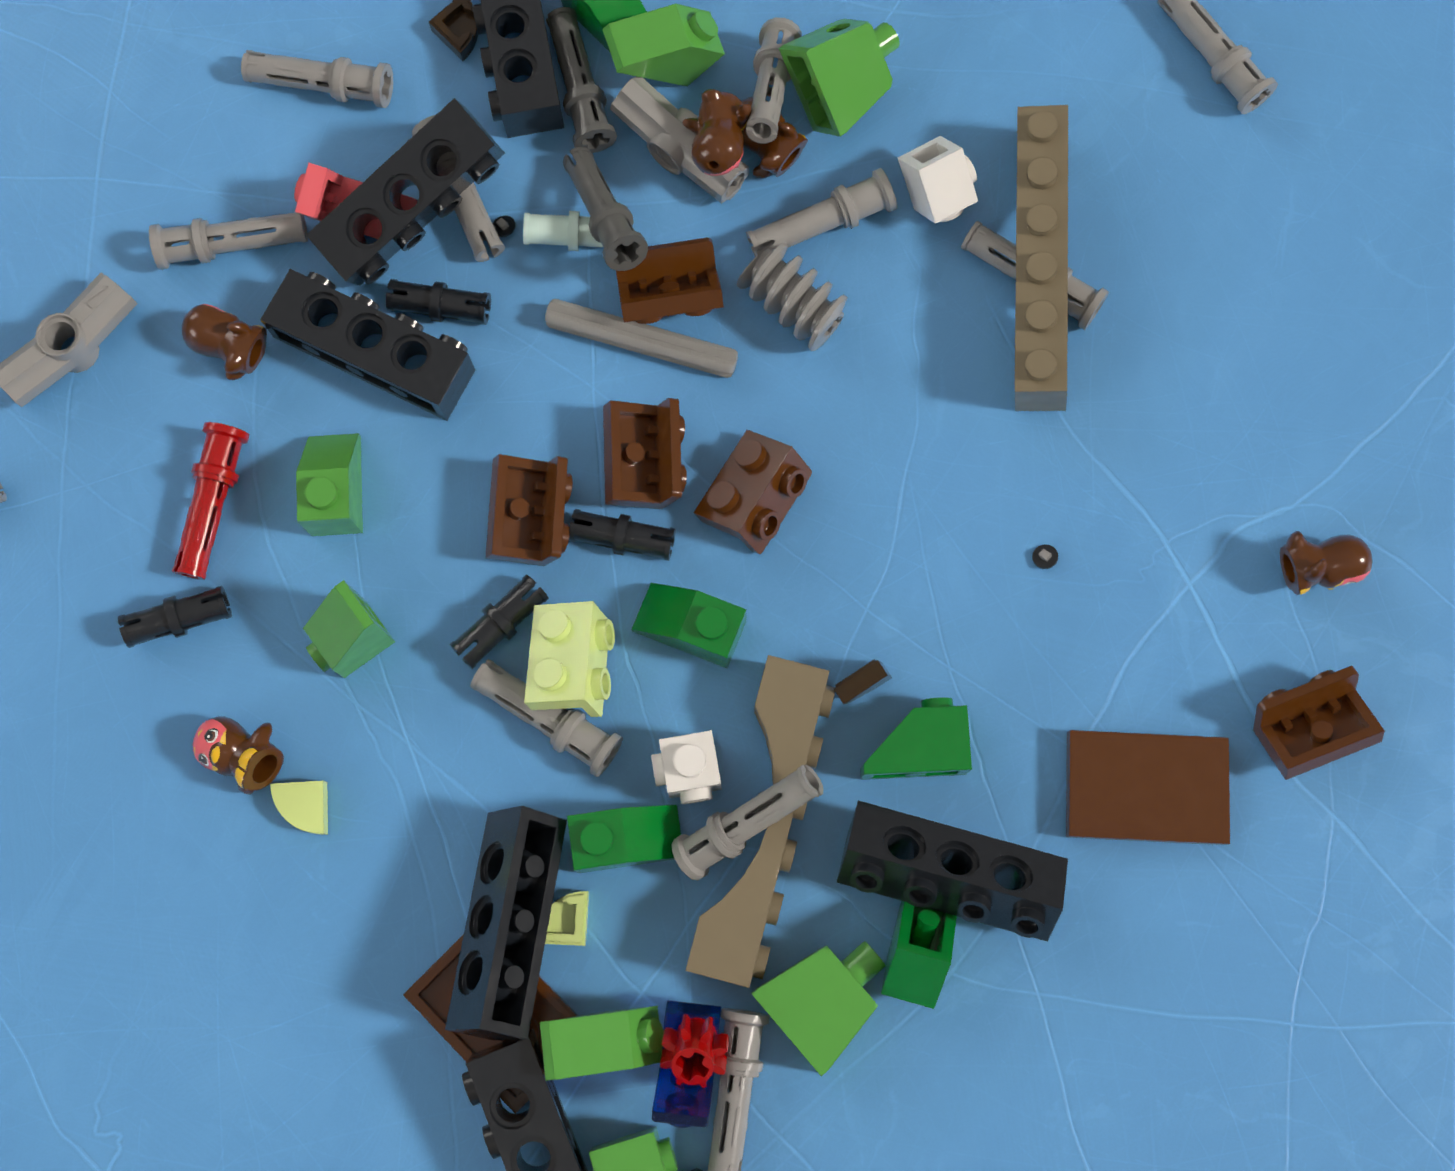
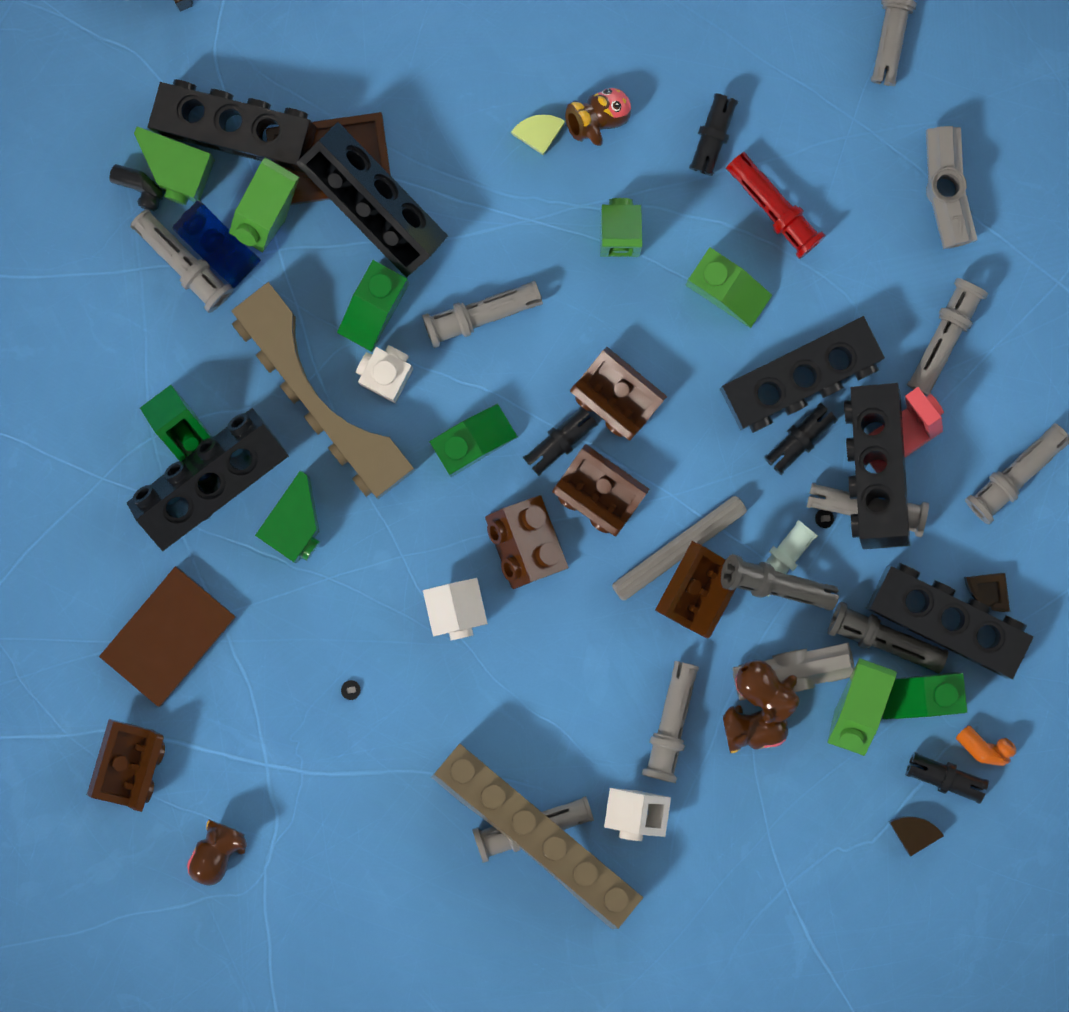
camera: 125 degrees right, 10 degrees up
(224, 336) = (878, 286): reddish brown animal -> none
(499, 621) = (561, 326): black pin -> none
(569, 658) = (504, 350): yellowish green bracket -> none
(569, 920) = (351, 239): yellowish green tile -> none
(694, 1051) = (219, 253): red gear -> none
(727, 832) = (327, 367): light grey pin -> none
(765, 115) = (793, 767): light grey pin -> none
(793, 295) = (631, 663): light grey piece -> none
(822, 1001) = (193, 347): bright green torso -> none
(840, 71) = (757, 808): bright green torso -> none
(862, 681) = (356, 520): dark brown tile -> none
(879, 506) = (455, 608): none -> white brick

